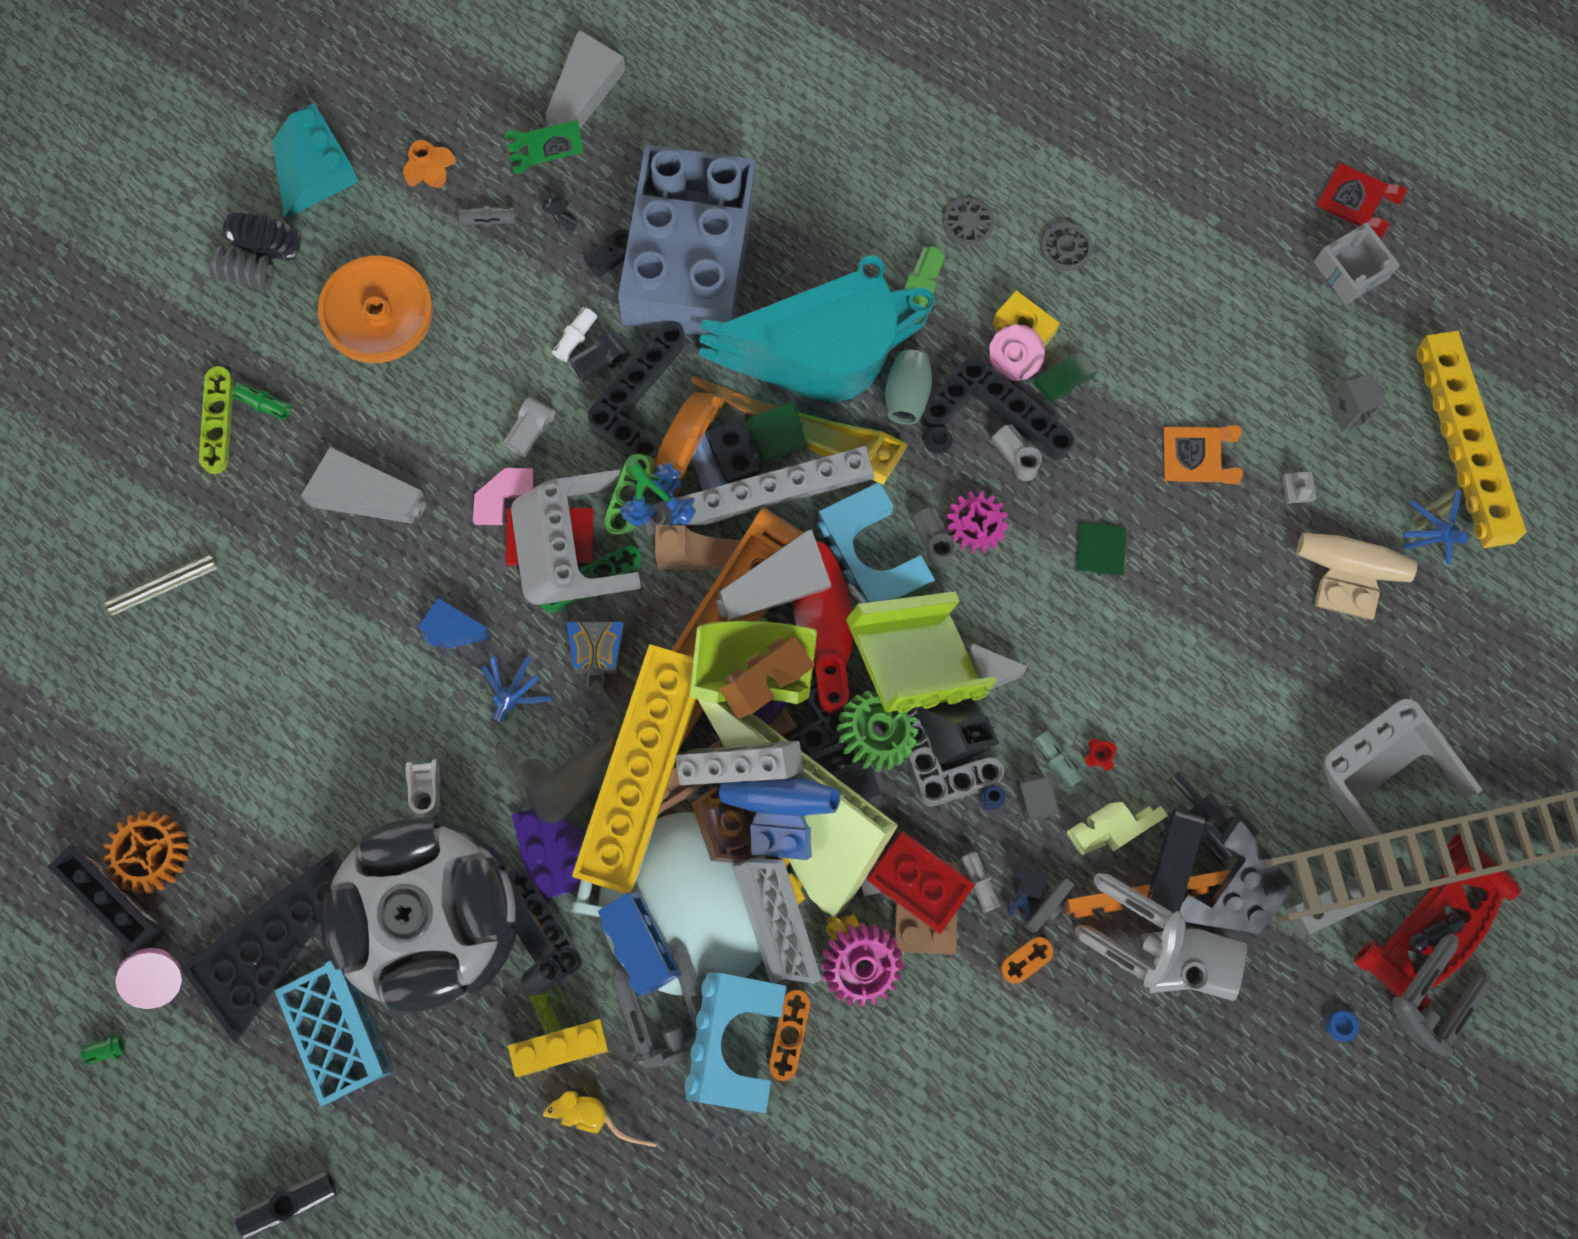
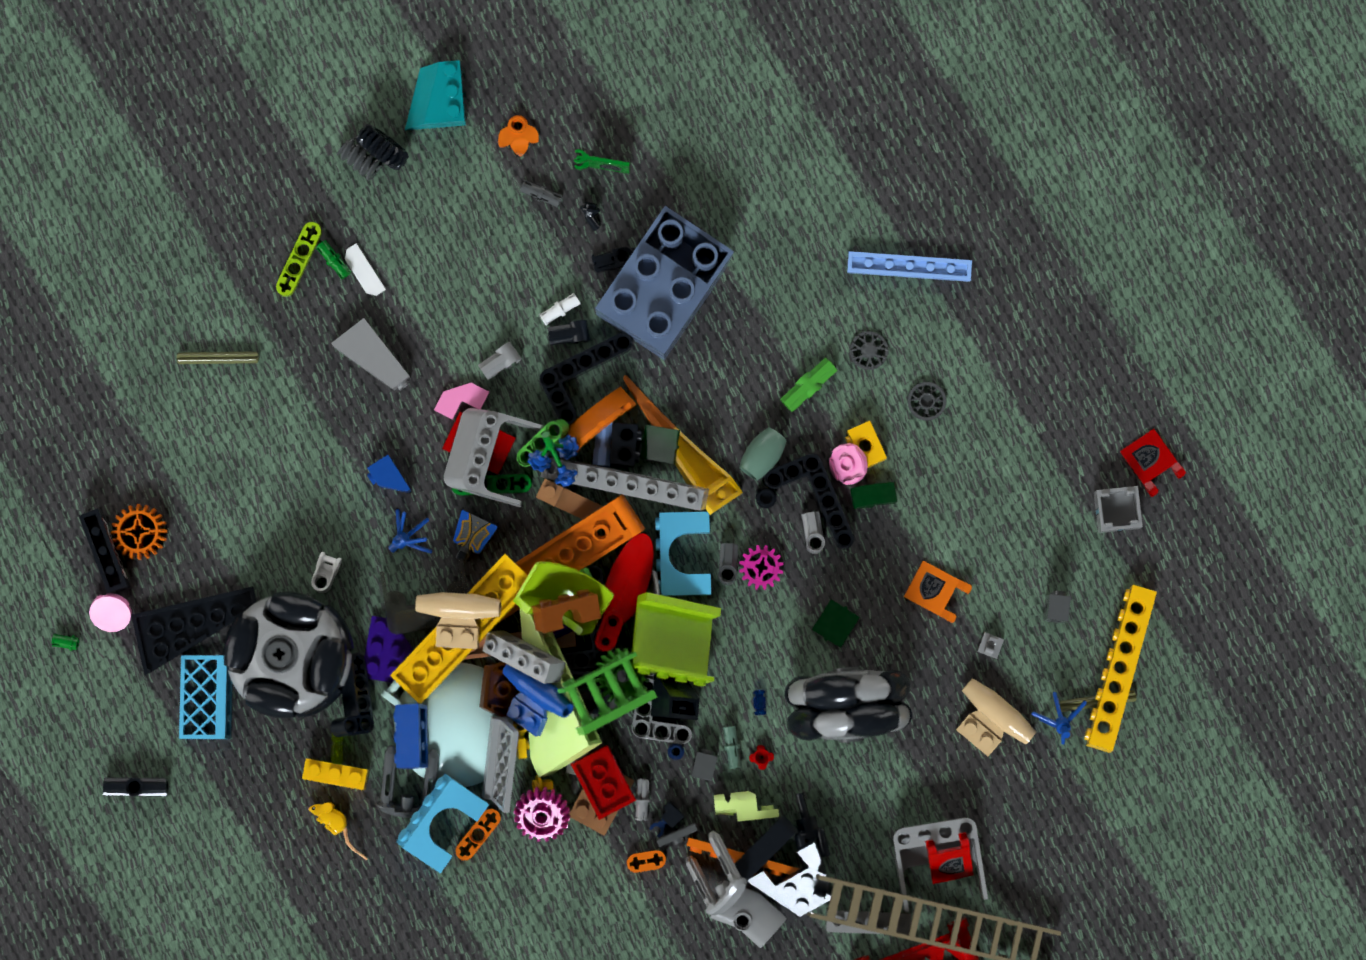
camera: 30 degrees right, 10 degrees up
(306, 399) = (363, 271): none -> white piece
(375, 309) = (435, 231): orange dish -> none
(584, 81) = (651, 124): light grey slope -> none
(626, 750) = (458, 615): none -> tan plate
(780, 579) = (608, 549): light grey slope -> none
(822, 340) = (720, 402): teal piece -> none
(887, 781) = (623, 706): none -> bright green fence
(965, 109) = (909, 266): none -> light blue plate
(992, 664) = (720, 669): light grey slope -> none
(1061, 687) = (759, 702): none -> clear blue piece
(1183, 624) = (848, 704): none -> black piece
(1409, 768) = (950, 862): none -> red flag

